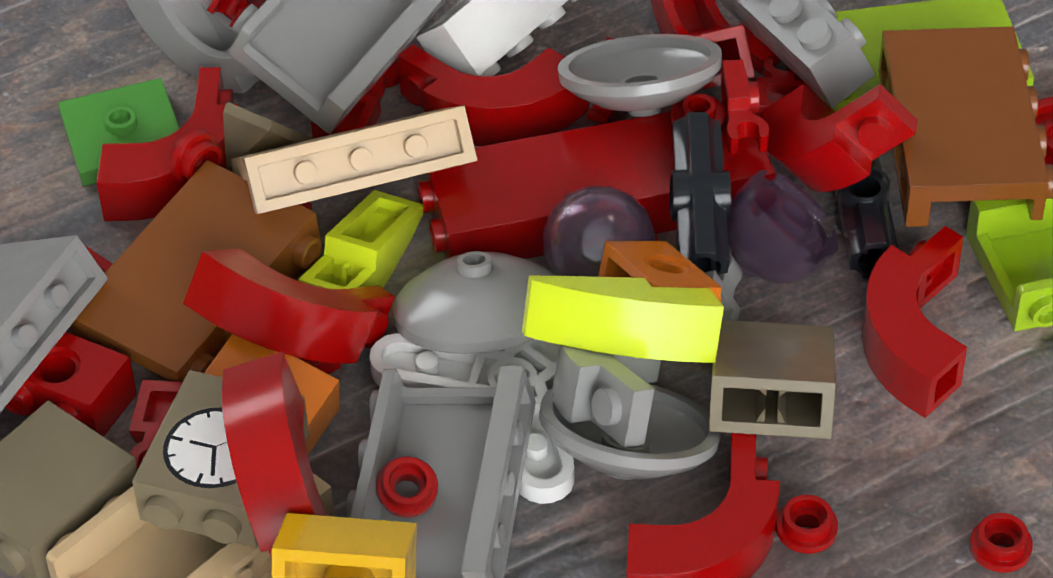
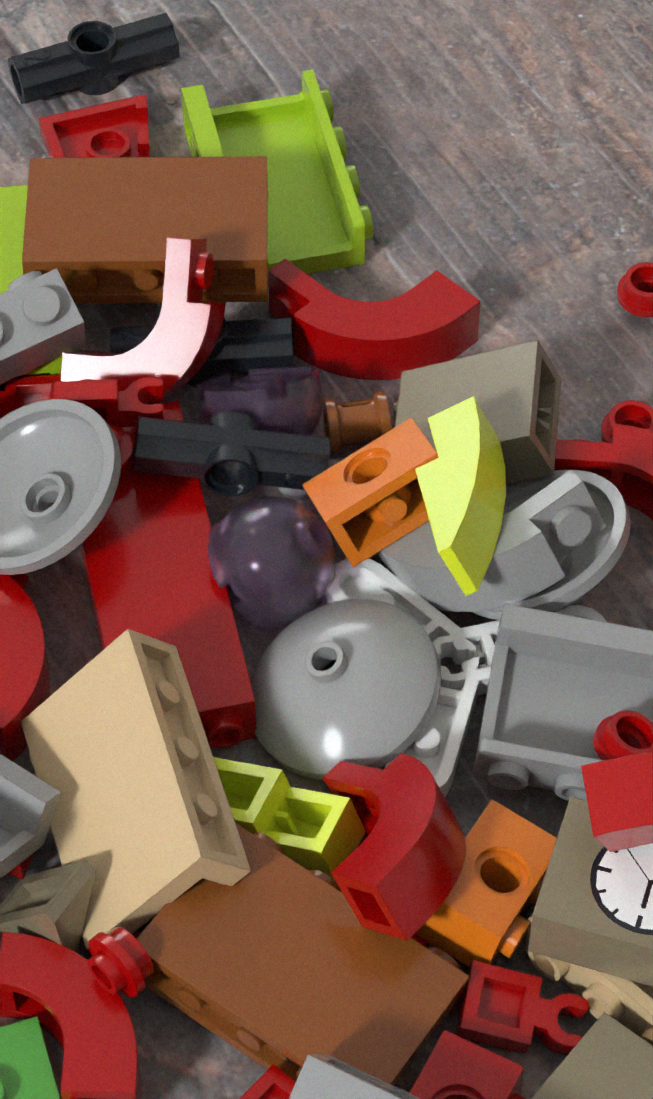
camera: 90 degrees left, 5 degrees up
(779, 305) = (355, 420): none -> dark orange bush

